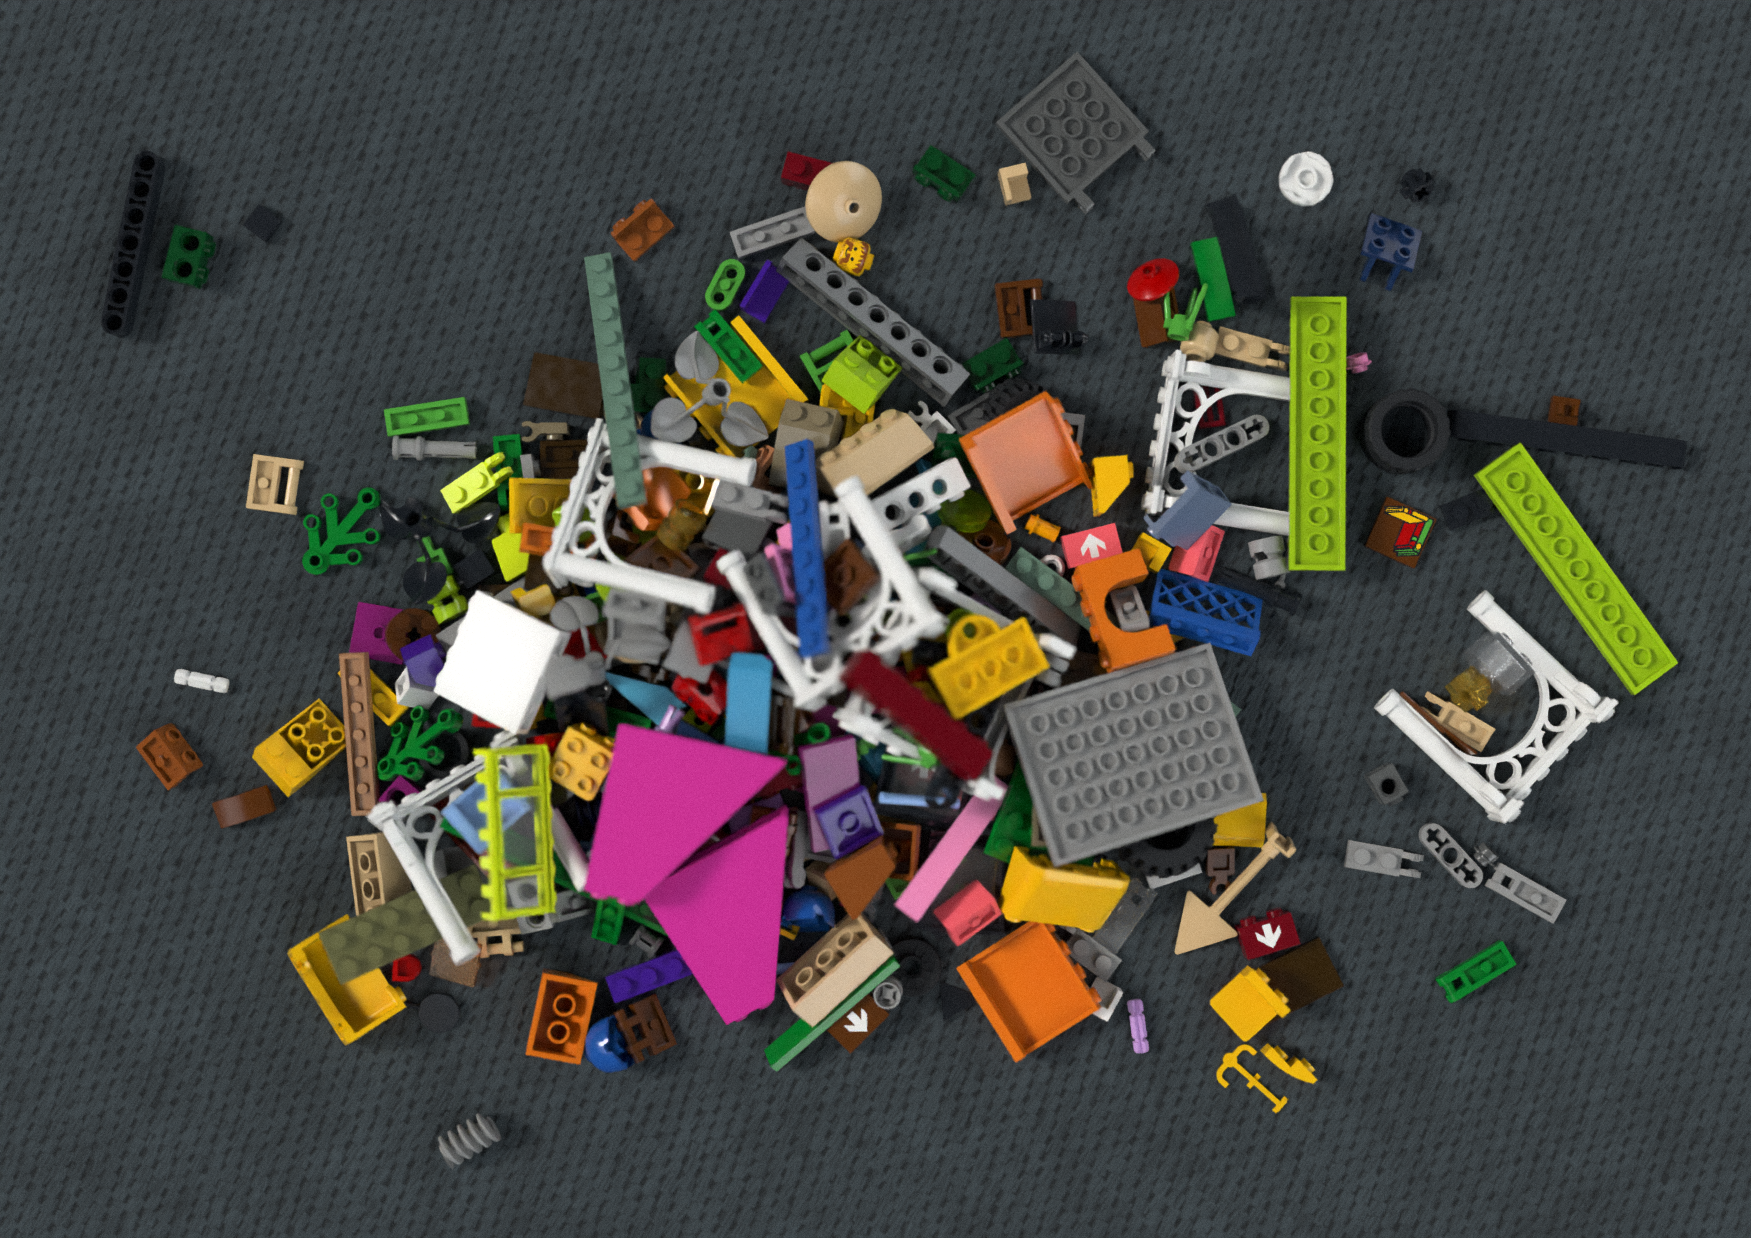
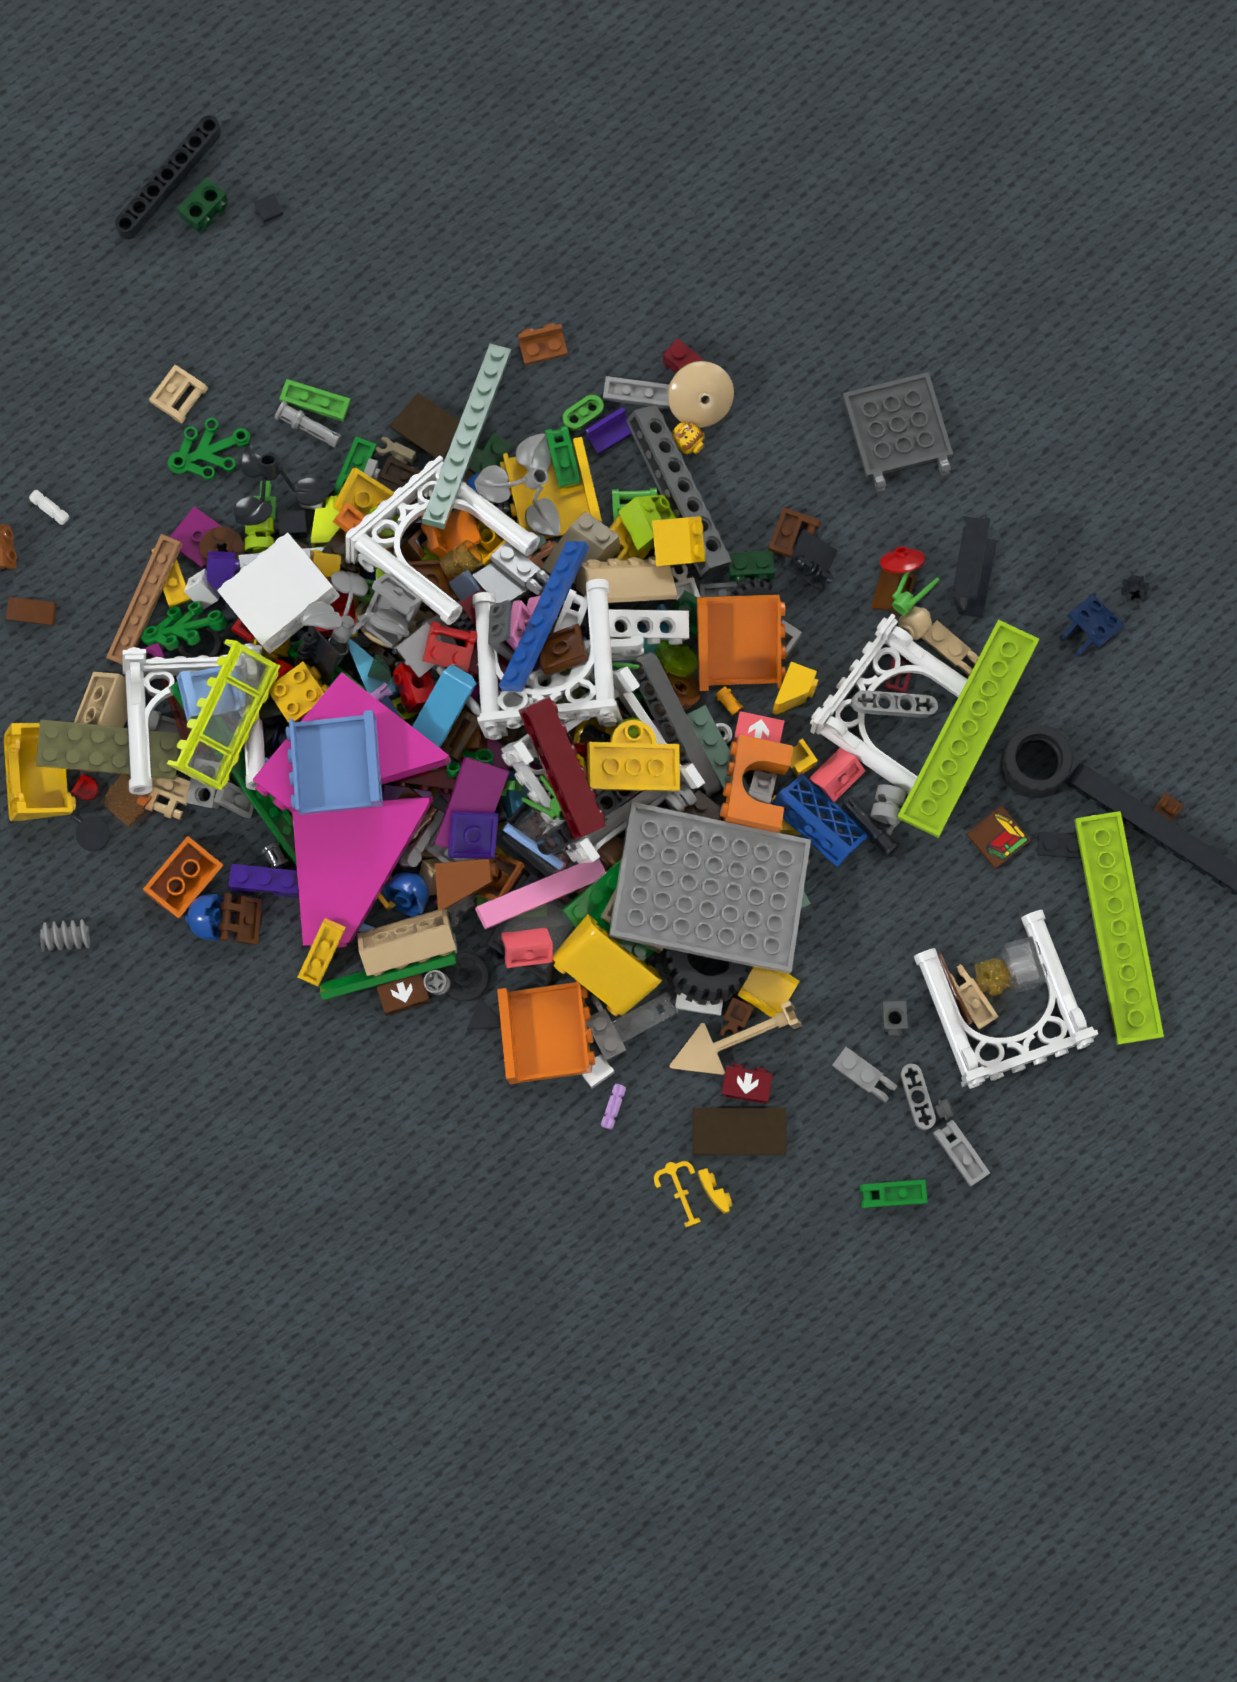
camera: 30 degrees right, 10 degrees down
(301, 747) = (95, 590): yellow slope -> none
(475, 483) = (326, 463): neon yellow hinge -> none
(608, 920) = (258, 821): green tile -> none
(656, 692) = (380, 670): none -> clear green tile
(665, 832) = (335, 764): none -> medium blue panel
(699, 551) = (464, 585): none -> sand blue tile
(750, 1022) = (321, 952): none -> yellow tile
(906, 383) = (678, 541): none -> yellow slope
(942, 174) = (785, 412): dark green bracket -> none
(1014, 183) = (834, 444): tan panel -> none
(1190, 514) = (843, 738): sand blue panel -> none
(1212, 271) = (943, 602): green tile -> none
(1249, 1003) = (706, 1127): yellow bracket -> none
(1298, 183) = (1055, 545): white tile -> none
(1357, 362) = (1027, 696): bright pink plate -> none

